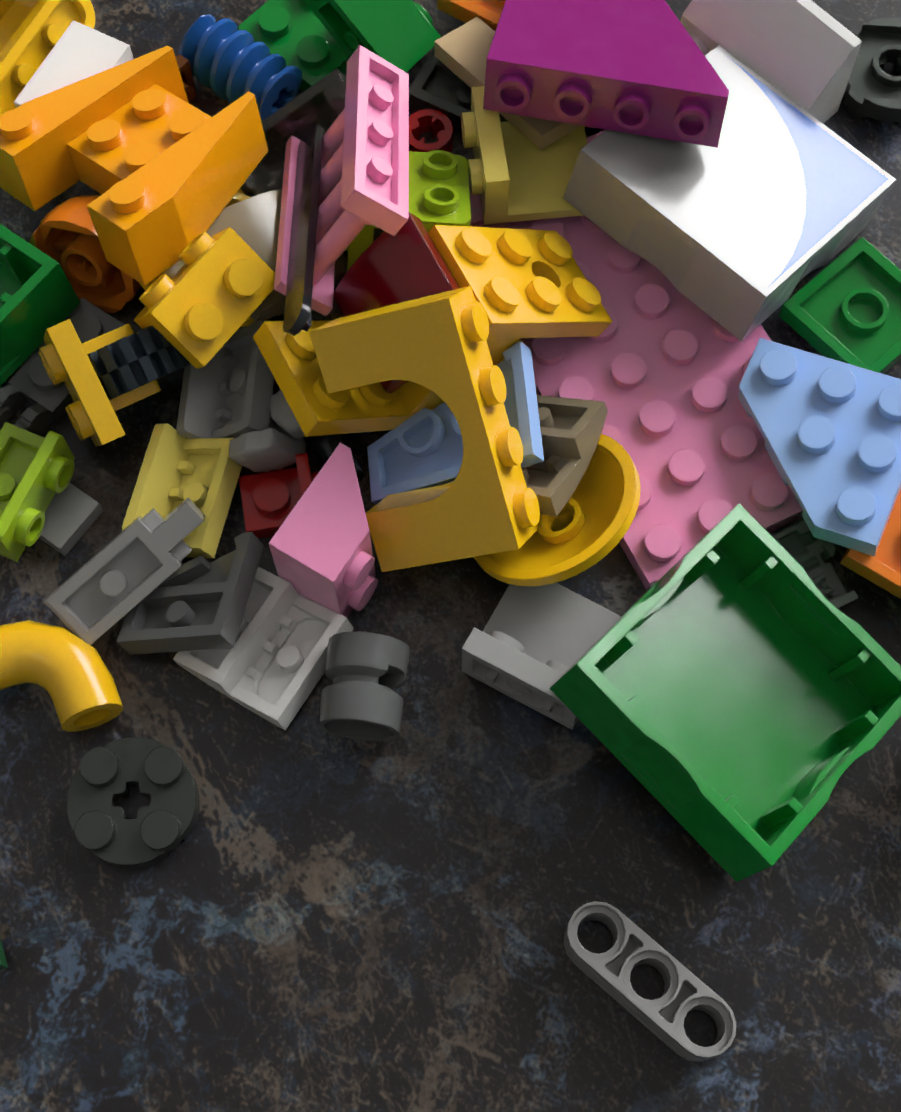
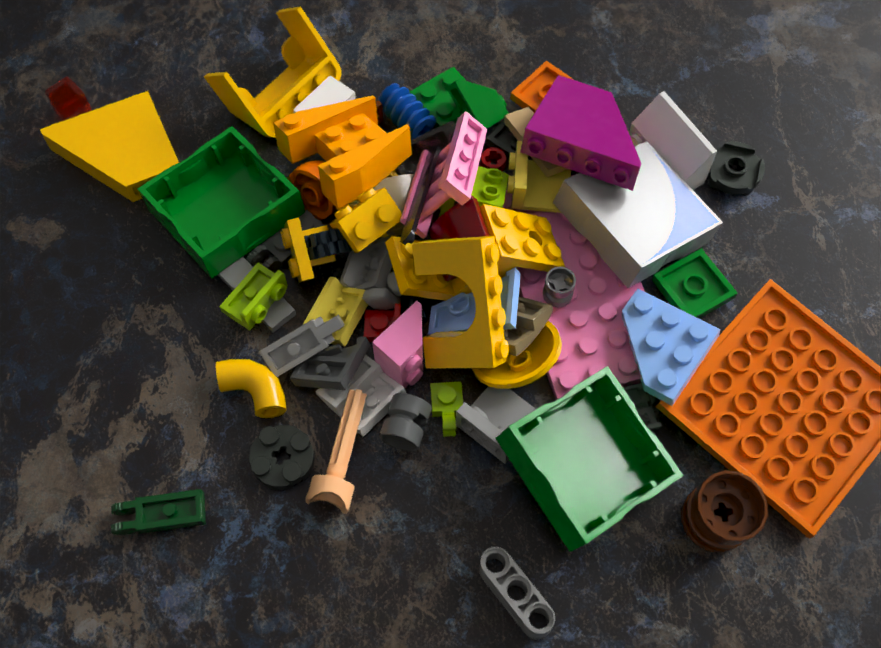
camera: 10 degrees right, 5 degrees down
(246, 842) = (332, 485): none -> light nougat piece
(436, 631) = (445, 401): none -> lime plate
(612, 348) = (559, 280): none -> flat silver wheel

